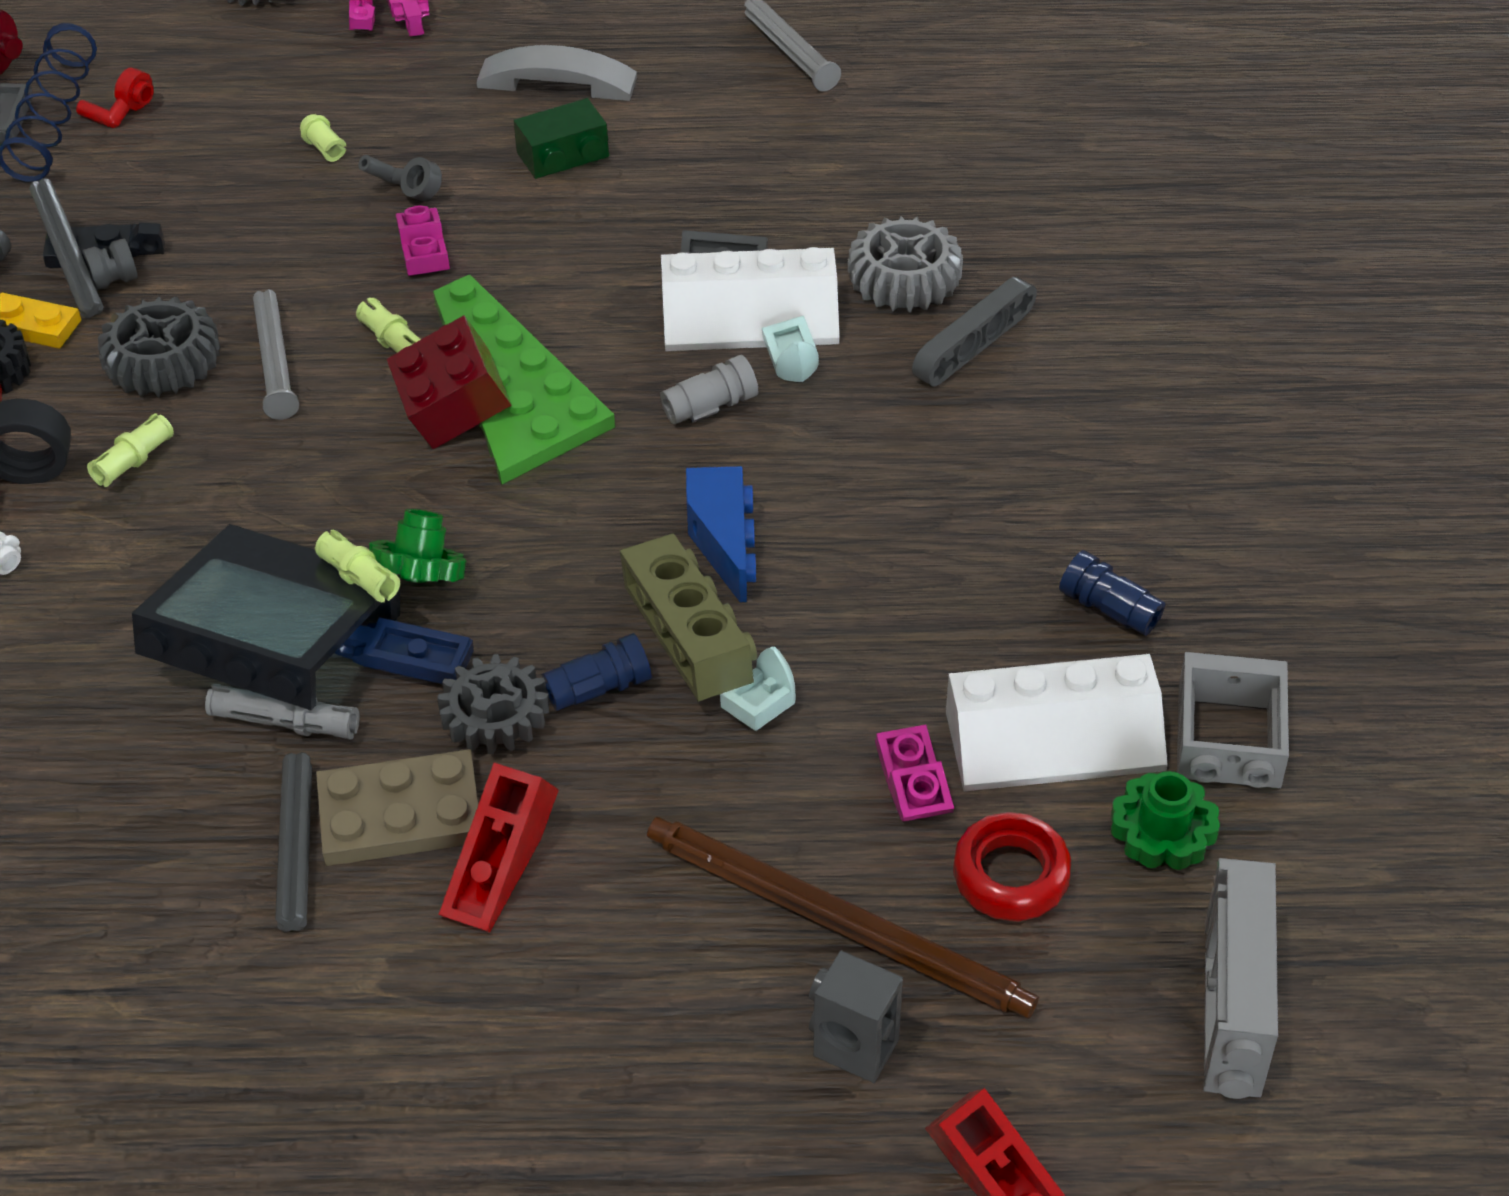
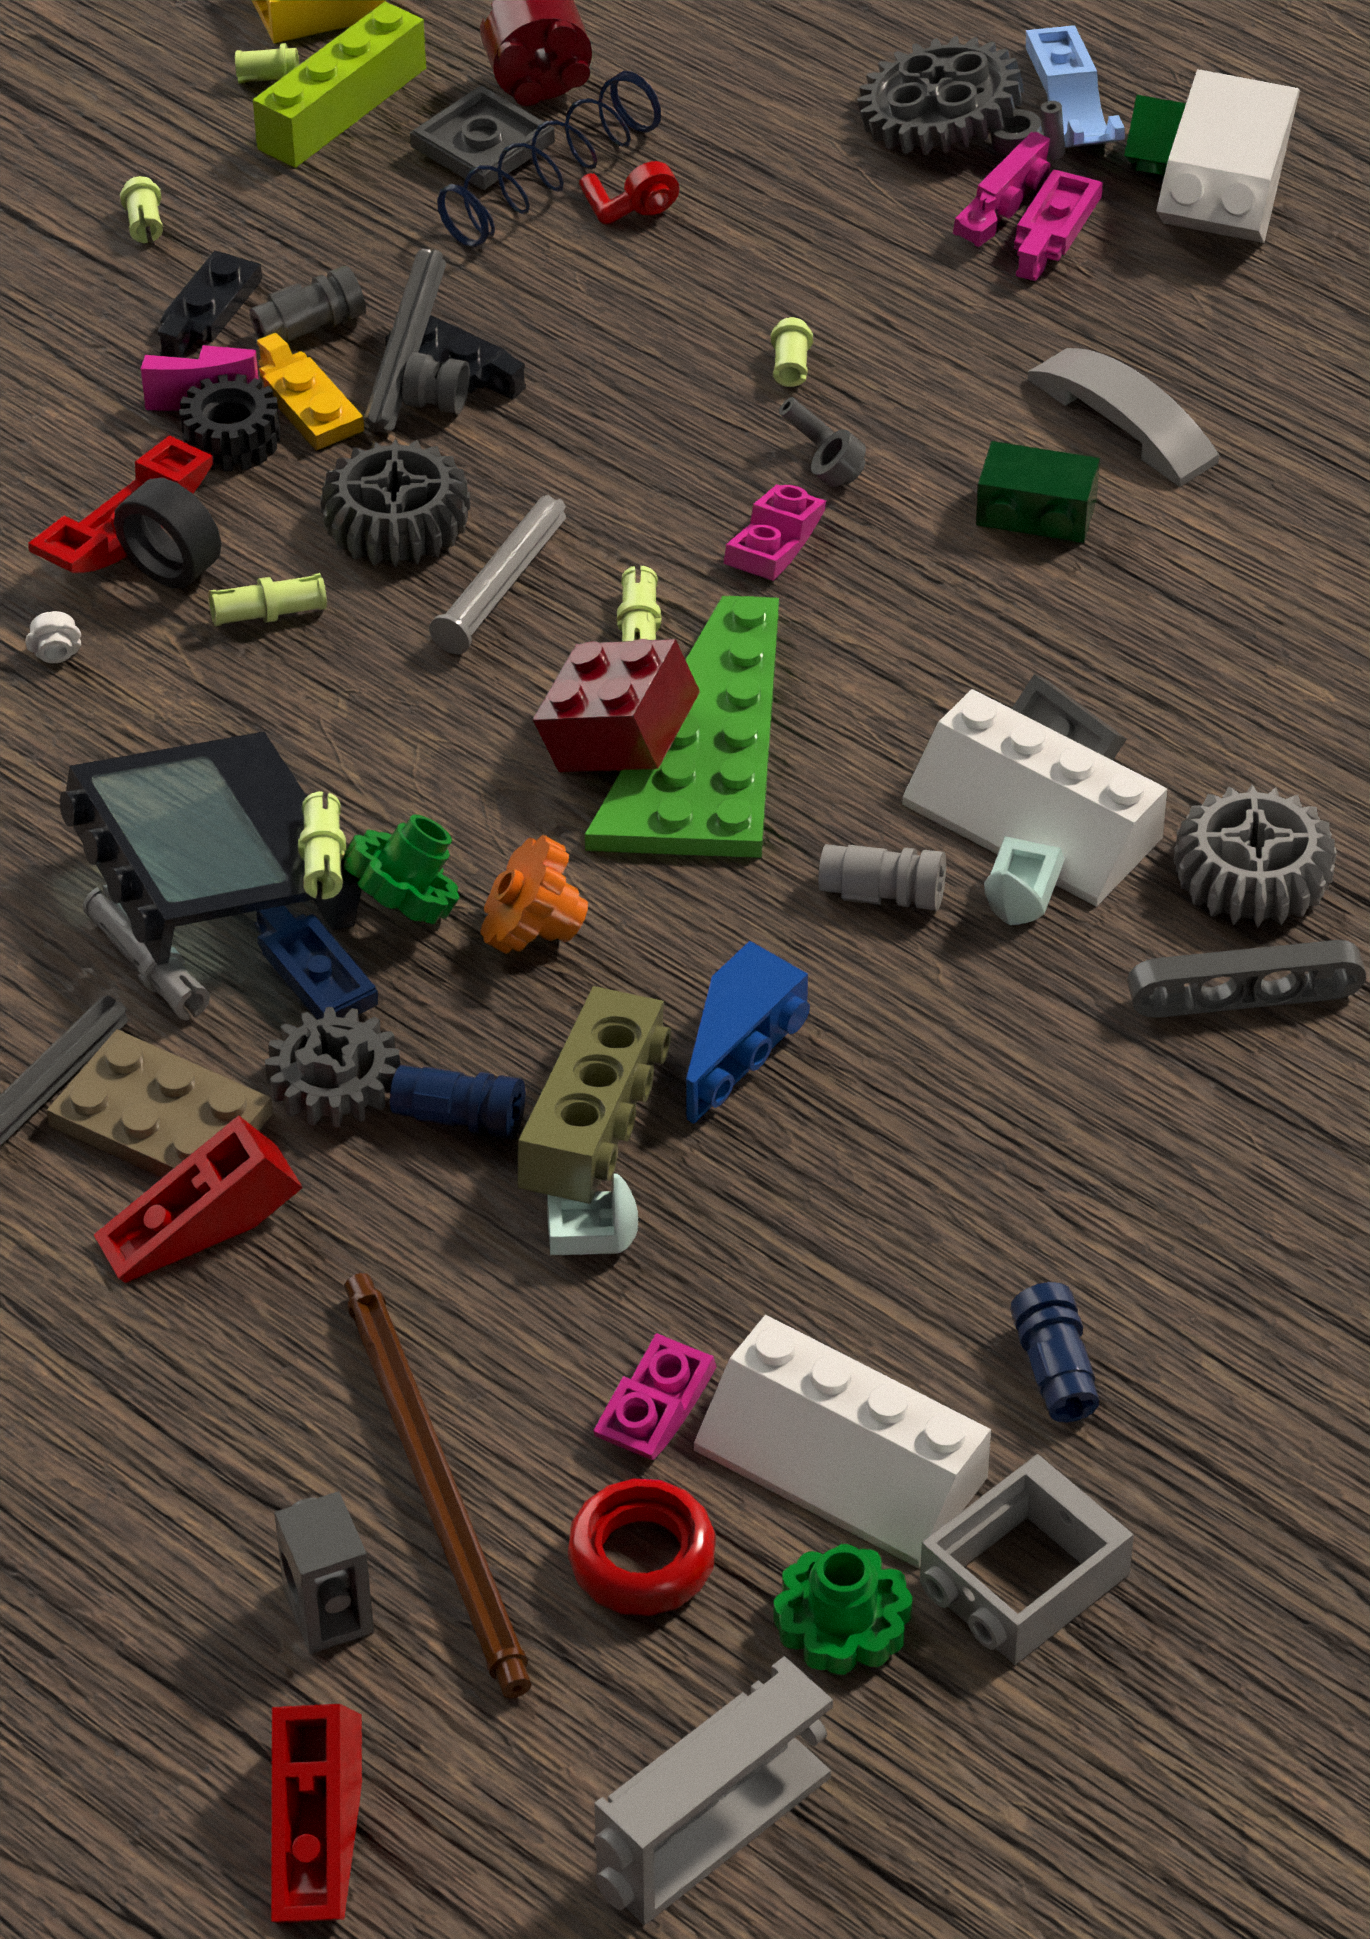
camera: 40 degrees right, 0 degrees up
(515, 523) = (533, 899): none -> orange plant

